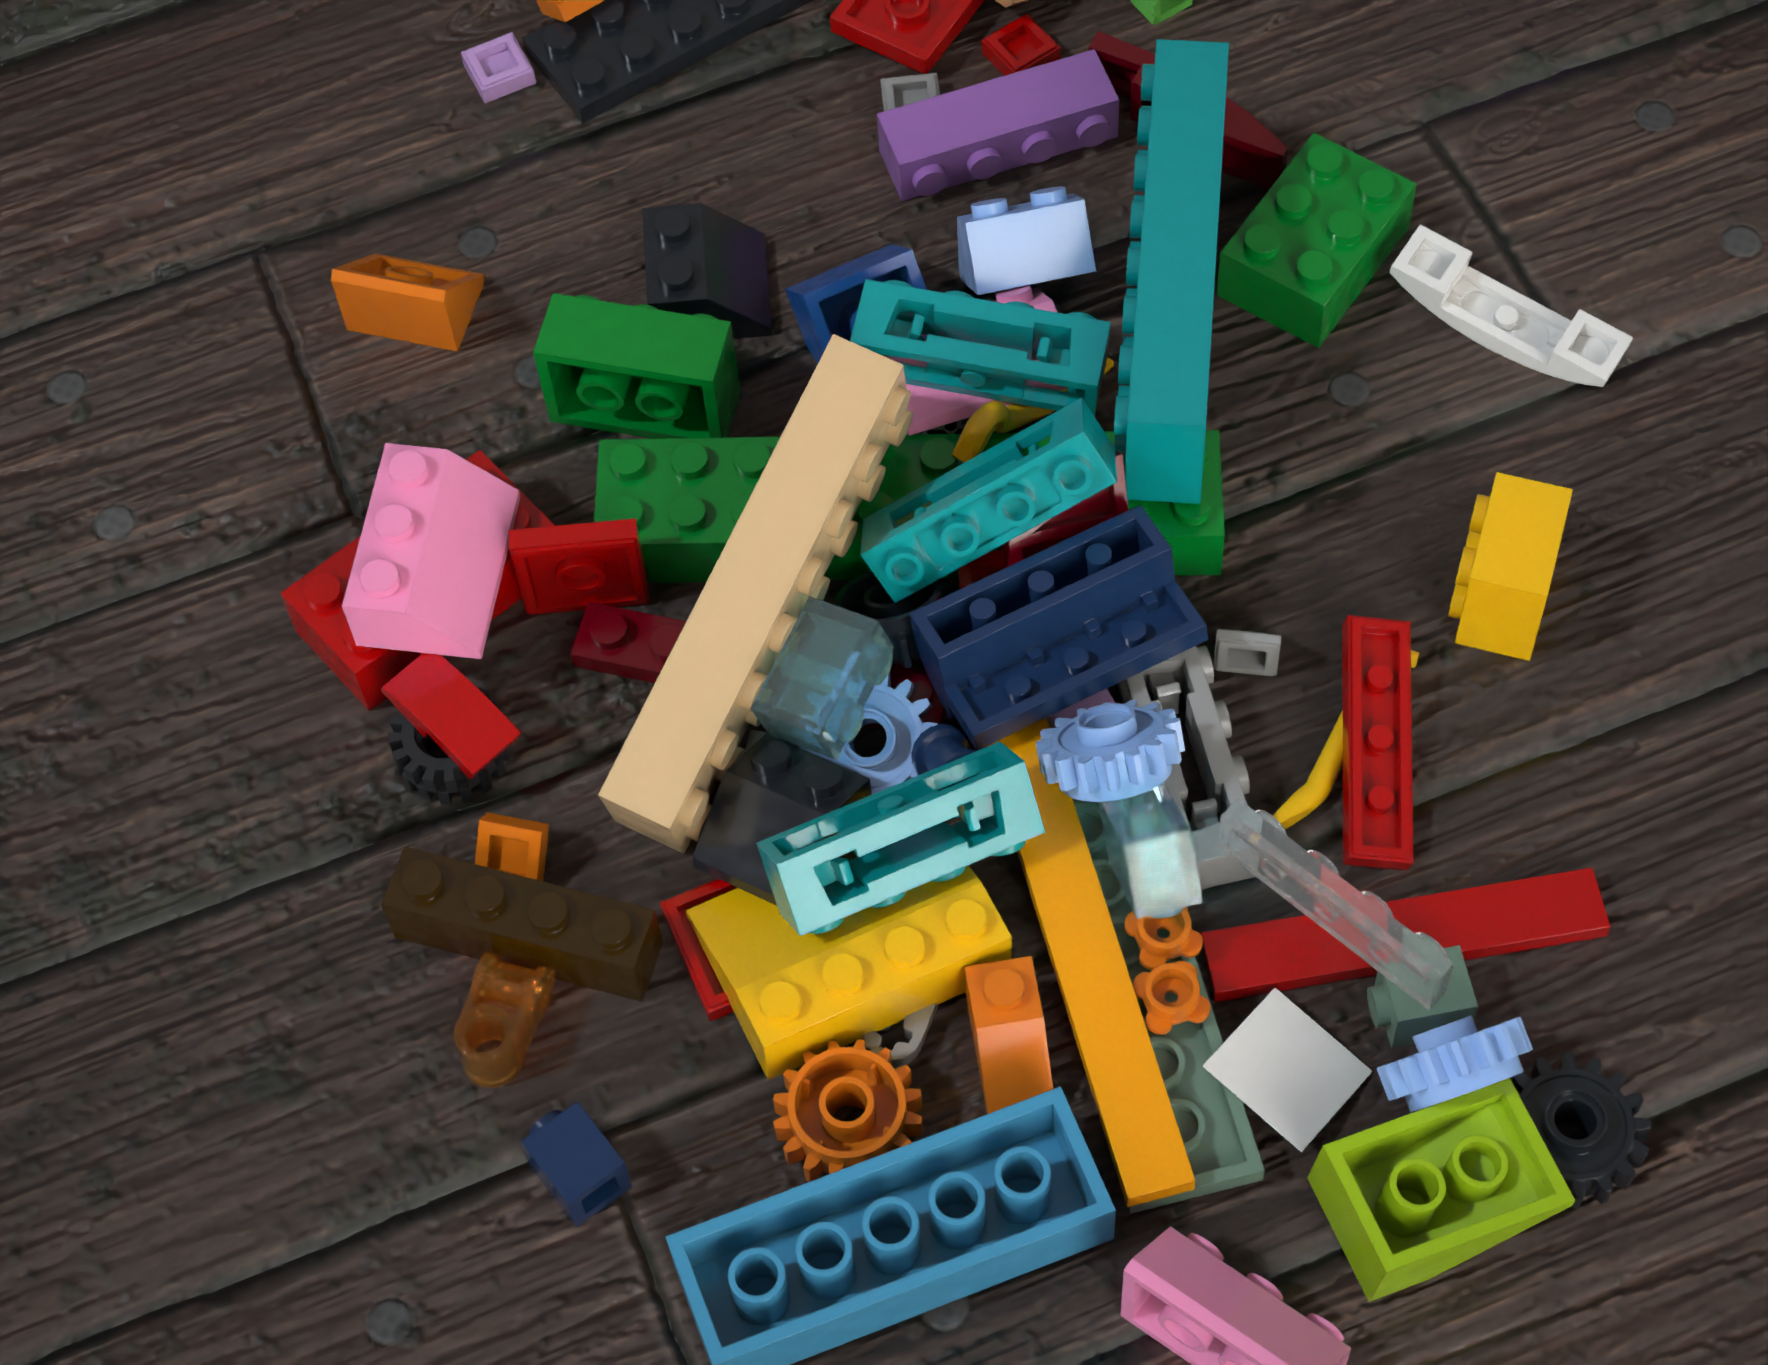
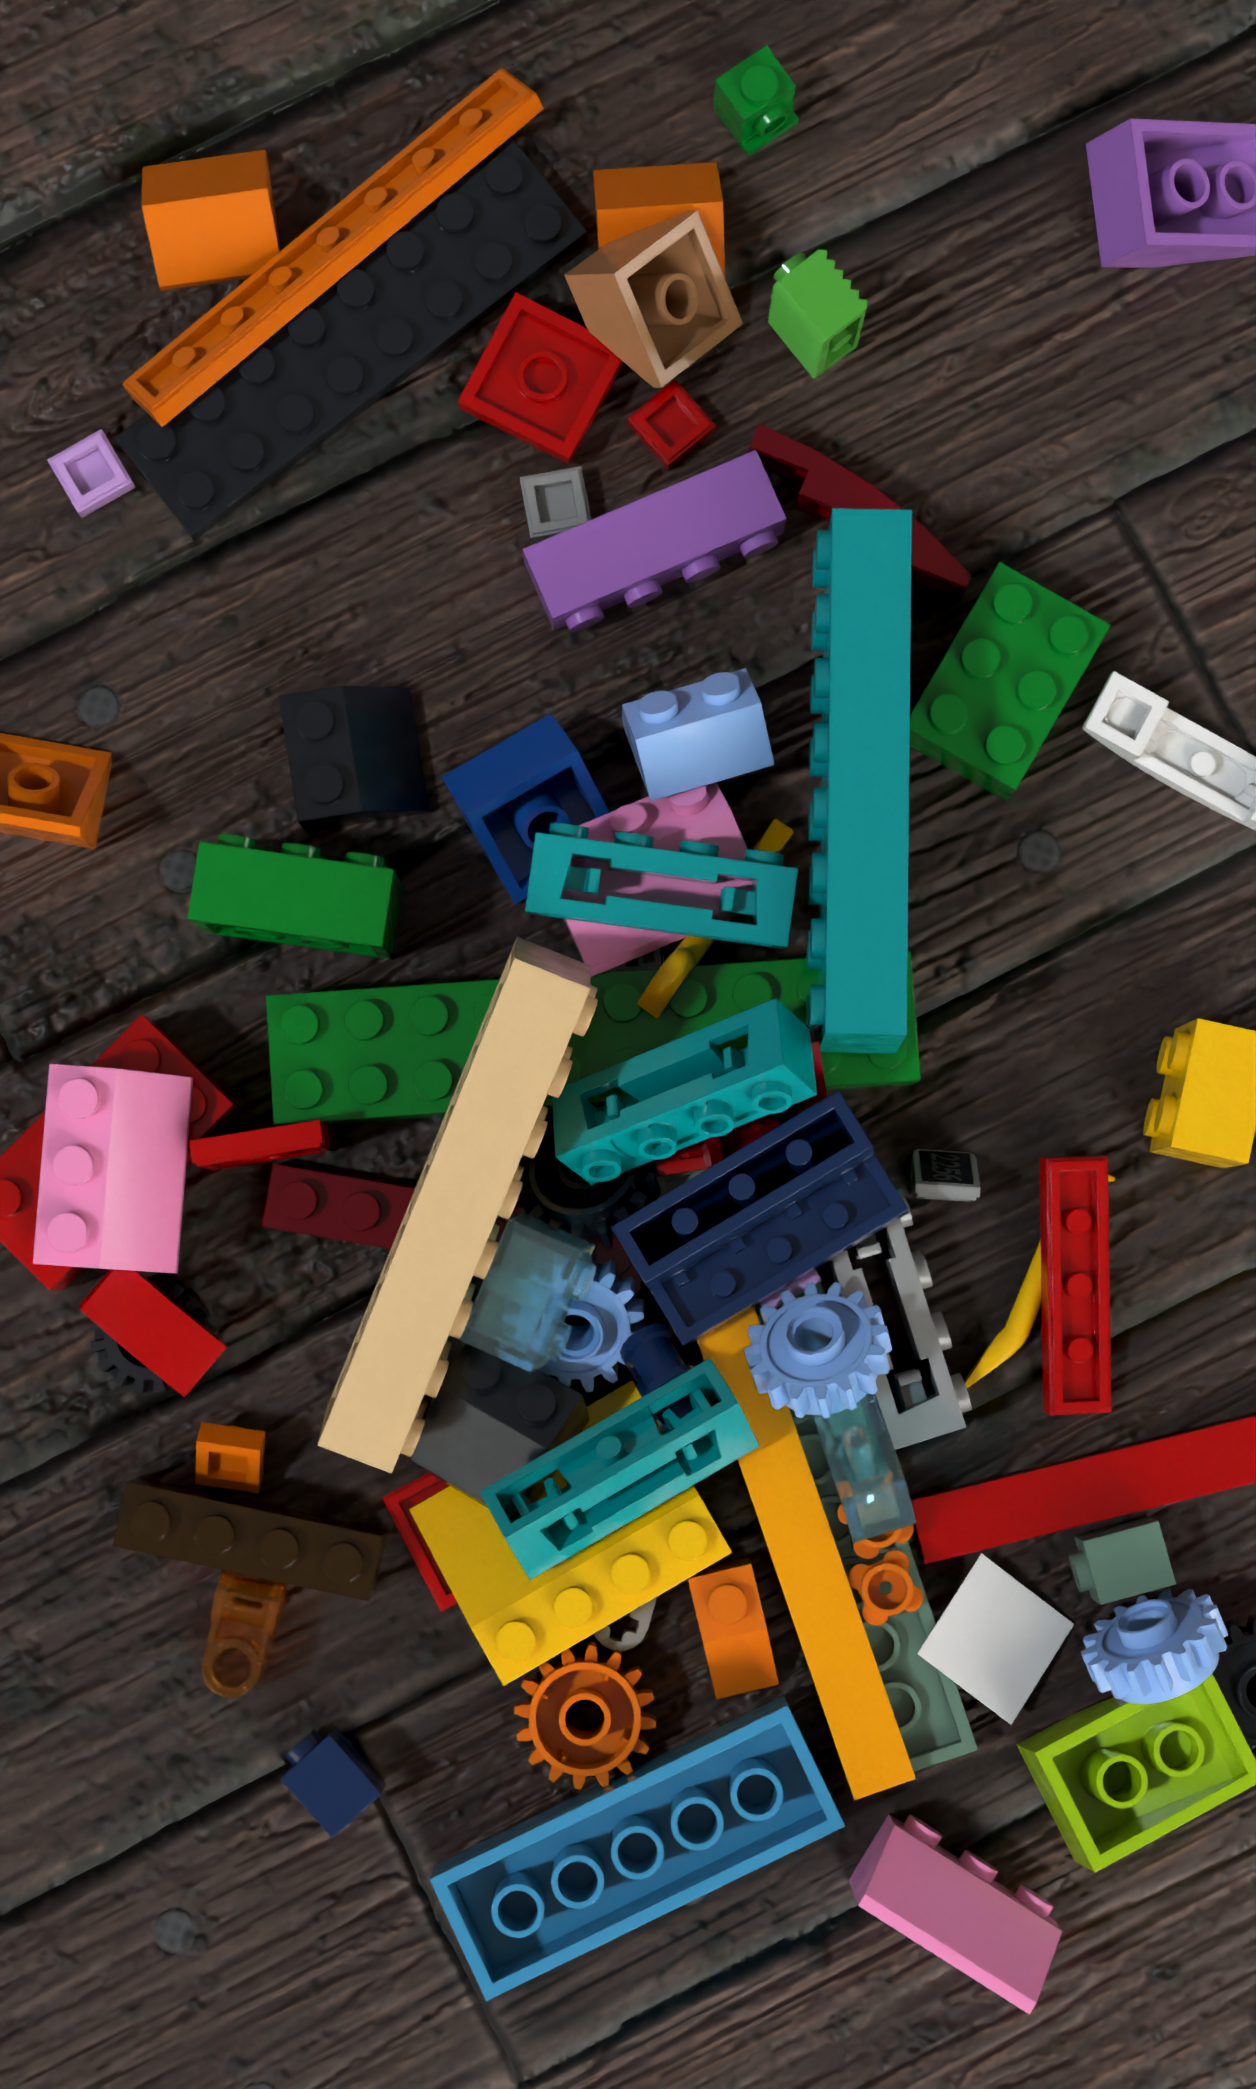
camera: 10 degrees left, 25 degrees up
(1353, 917) = (1064, 1515): clear plate -> none

